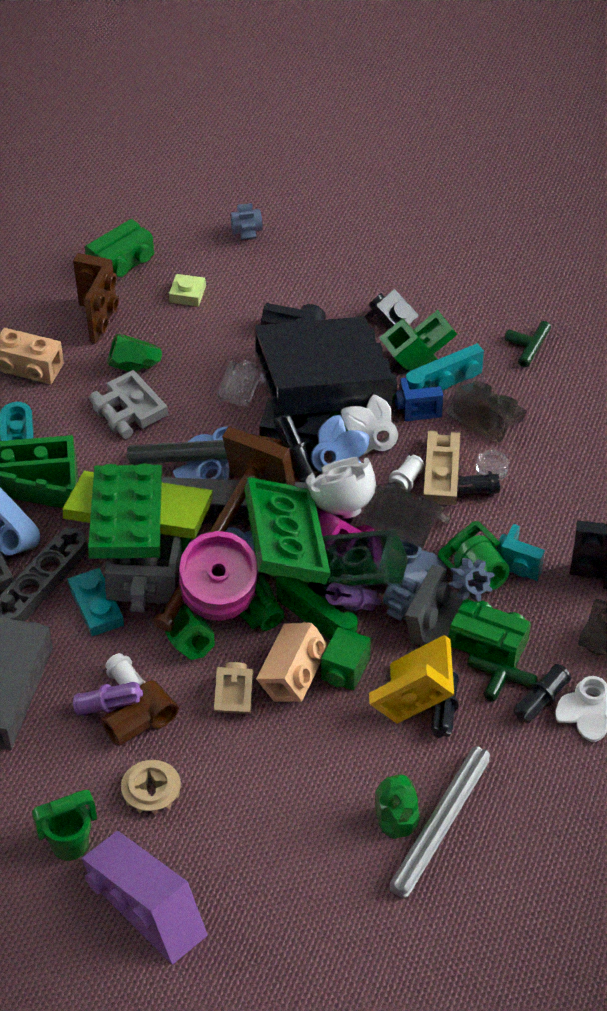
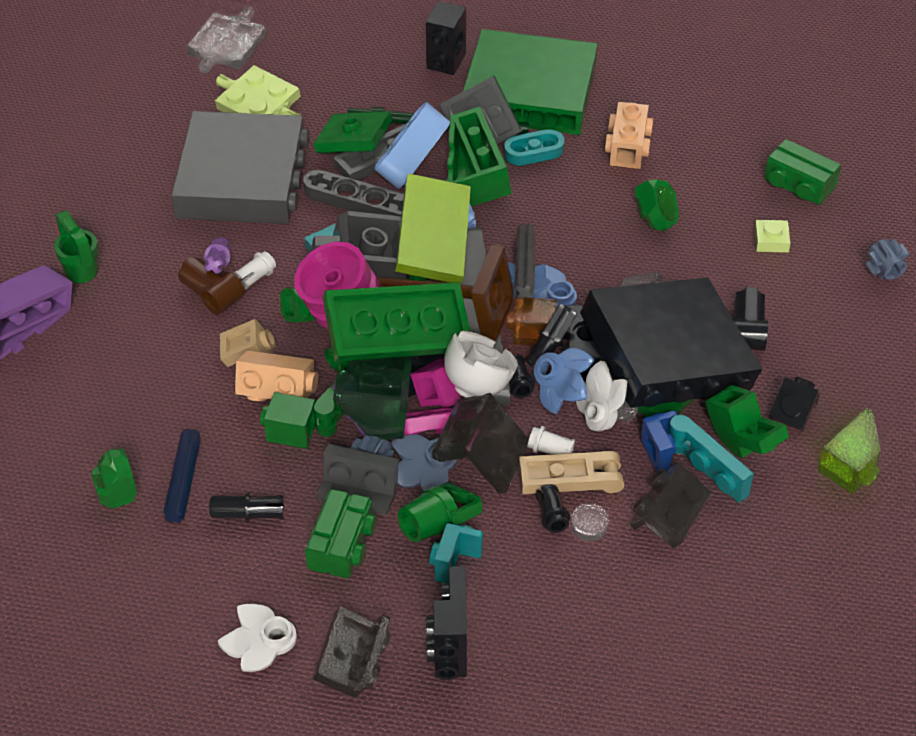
camera: 80 degrees right, 0 degrees up
(96, 292) = (710, 160): reddish brown bracket -> none
(125, 511) = (407, 211): green plate -> none
(135, 786) = (146, 298): tan gear -> none
(136, 399) = (595, 222): light grey plate -> none
(392, 757) = (182, 475): none -> dark blue axle
(416, 681) = (249, 481): yellow bracket -> none
(439, 822) = (111, 521): light grey axle -> none
(452, 287) = (853, 454): none -> clear neon green slope
(465, 573) = (385, 494): sand blue gear -> none
(500, 673) = (295, 554): dark green piece -> none
(531, 343) = (798, 542): dark green piece -> none
(542, 693) = (271, 590): black axle -> none

